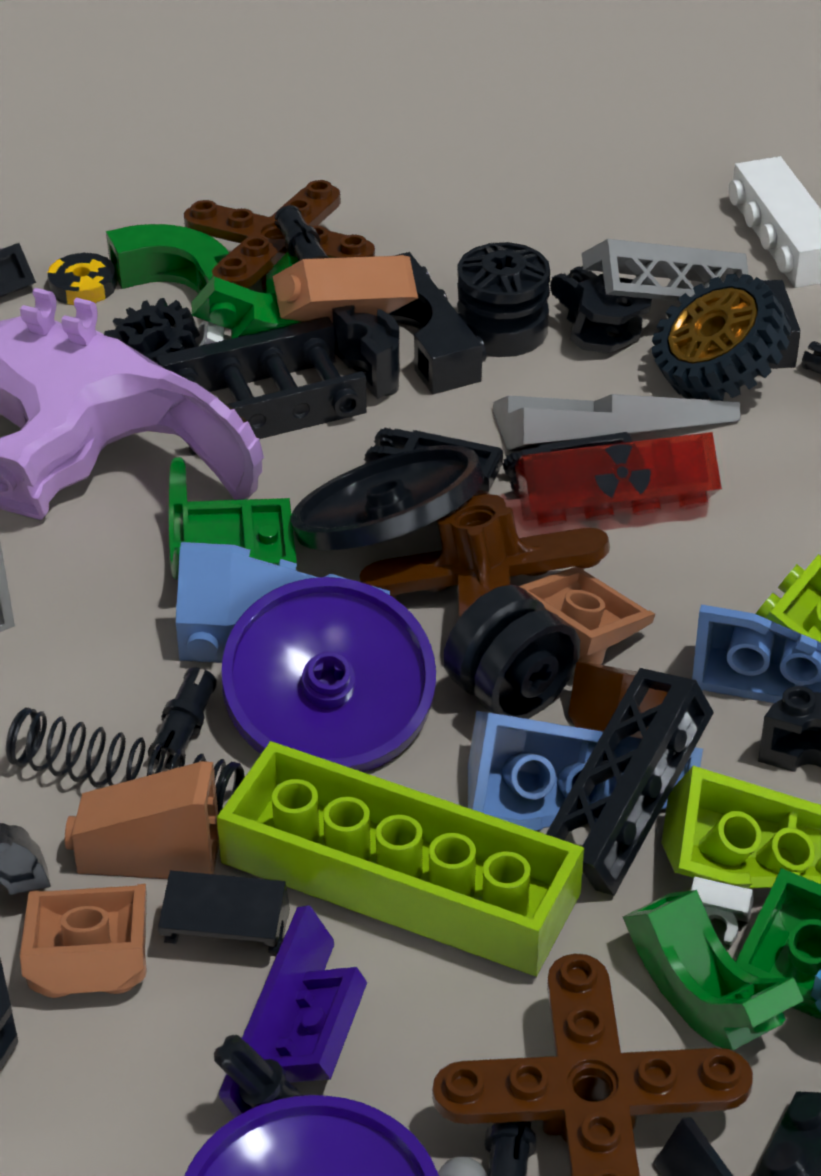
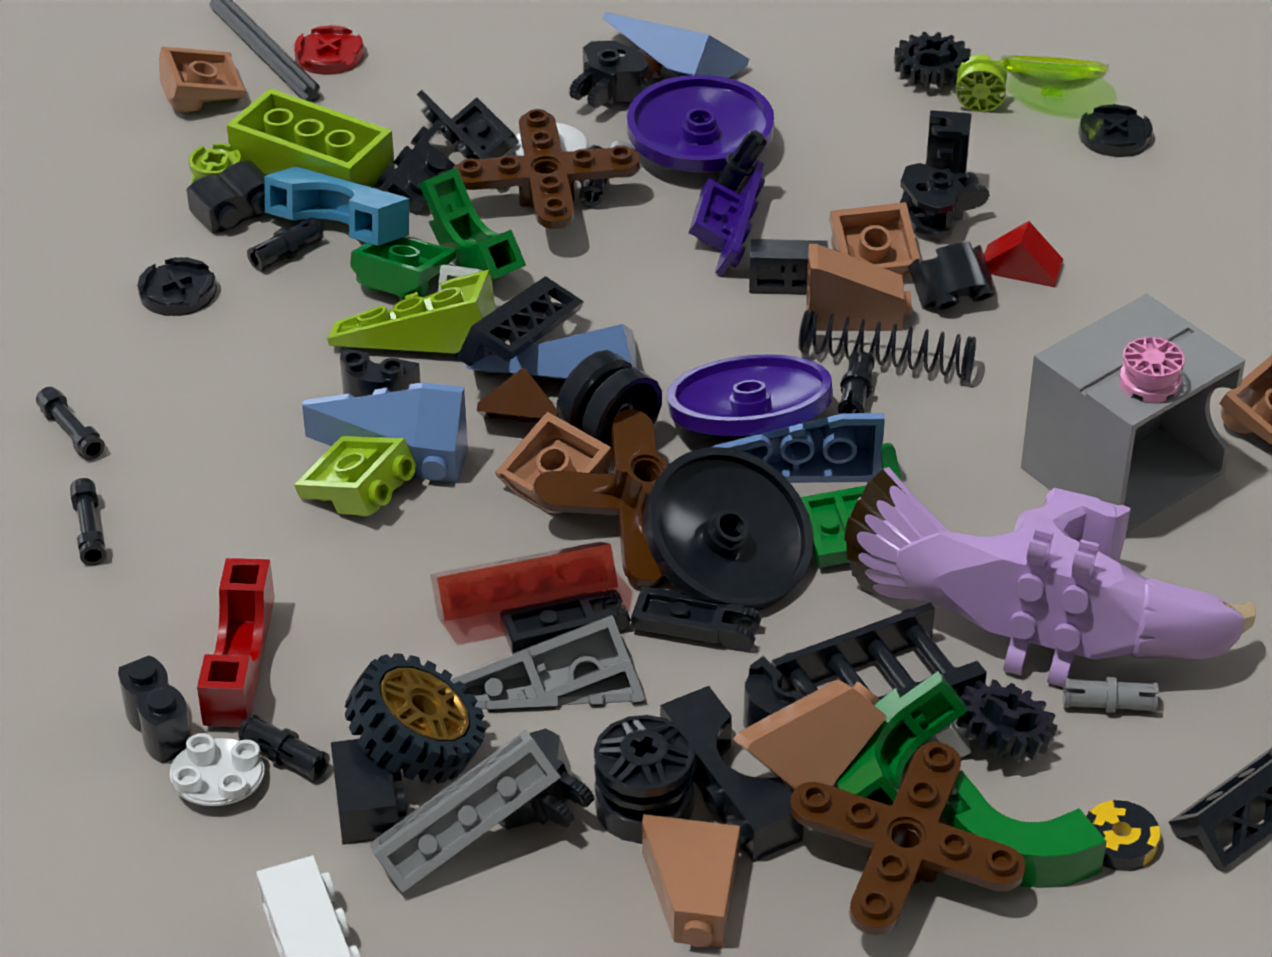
camera: 175 degrees right, 0 degrees up
(300, 239) = (868, 774): black pin -> none
(402, 857) = (680, 286): lime brick -> none
(456, 232) = (693, 875): none -> nougat slope

